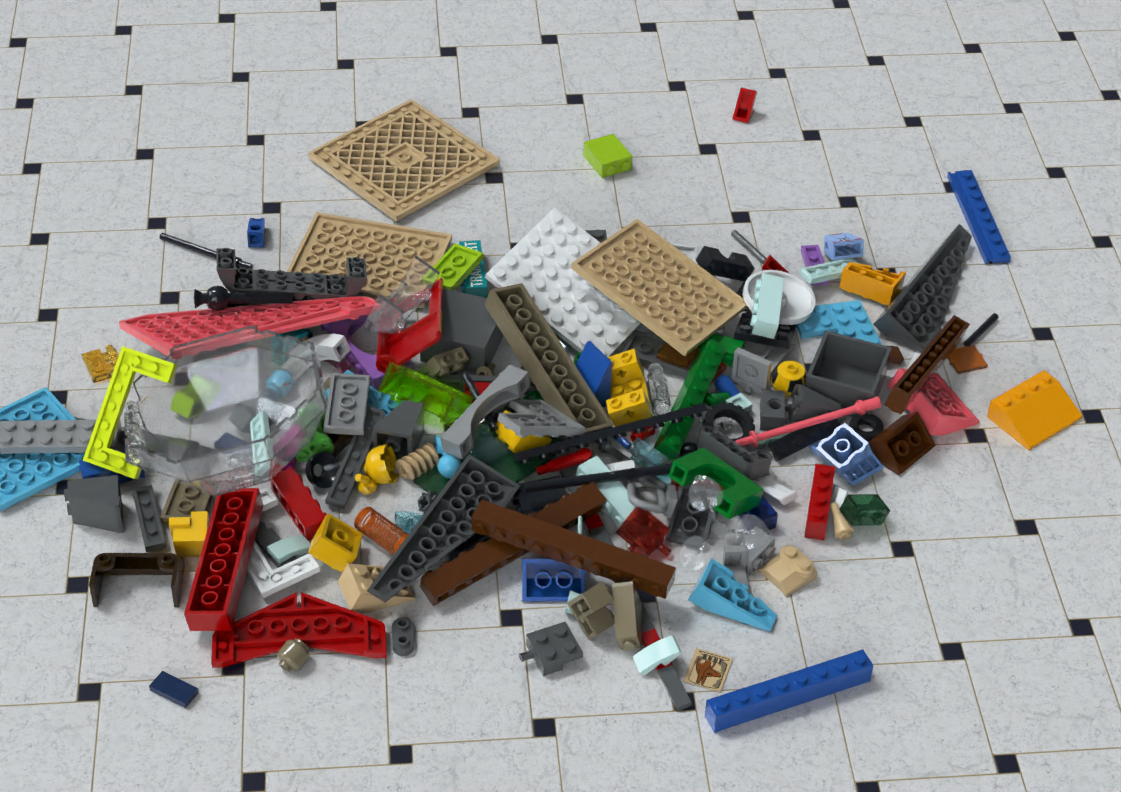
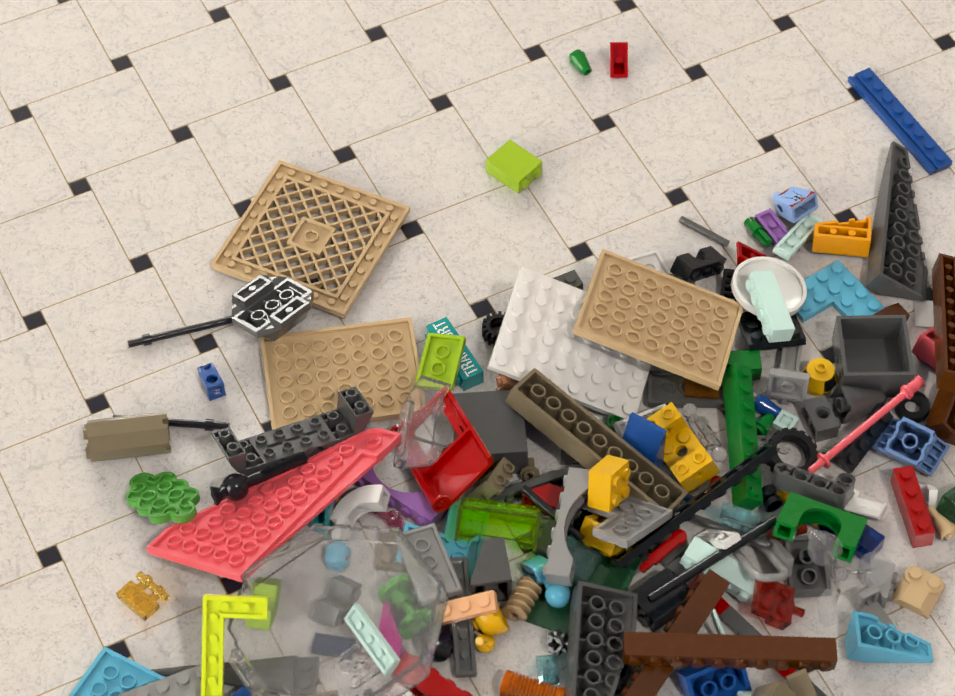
camera: 20 degrees left, 10 degrees up
(160, 246) = (127, 436): none -> dark tan brick
(160, 296) = (163, 497): none -> bright green plate
(225, 190) = (147, 339): none -> black bar
(335, 191) = (270, 306): none -> dark grey piece
(360, 446) = (470, 607): none -> light nougat plate
(537, 387) = (608, 483): none -> yellow brick
(710, 98) = (580, 62): none -> green cone
(797, 258) = (758, 232): none -> green axle

